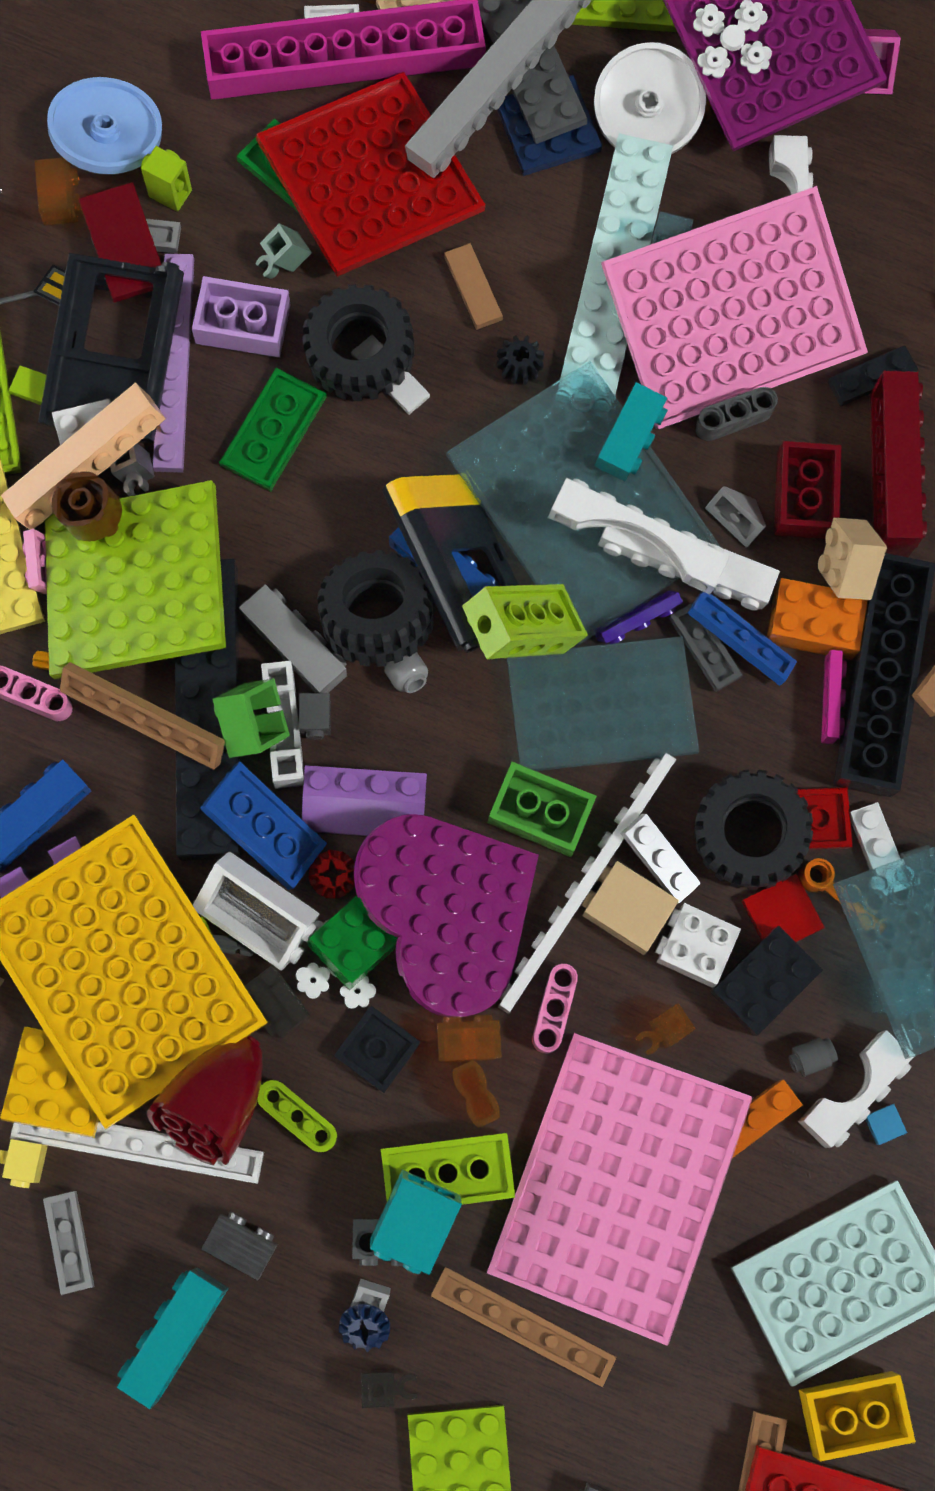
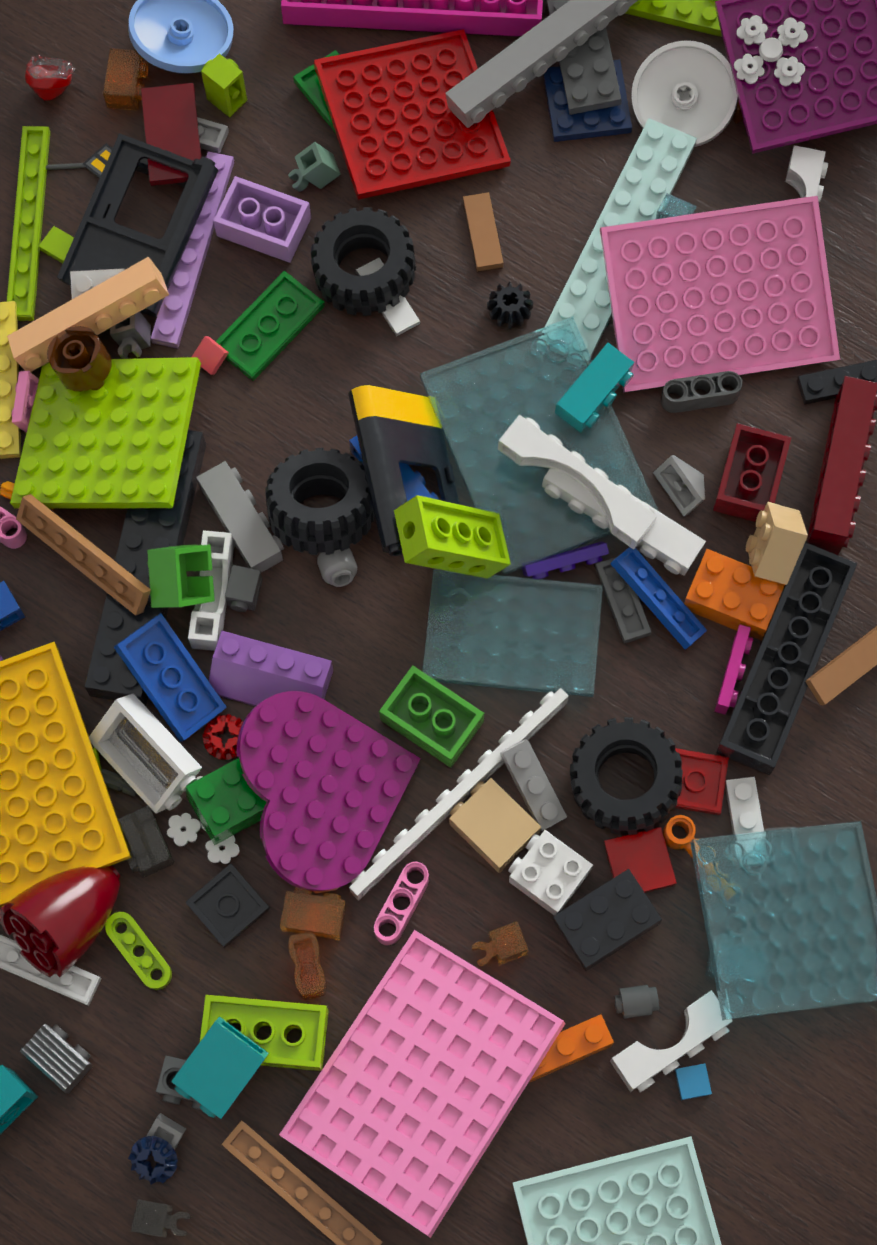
camera: 20 degrees right, 5 degrees down
(220, 472) = (210, 355): none -> coral tile

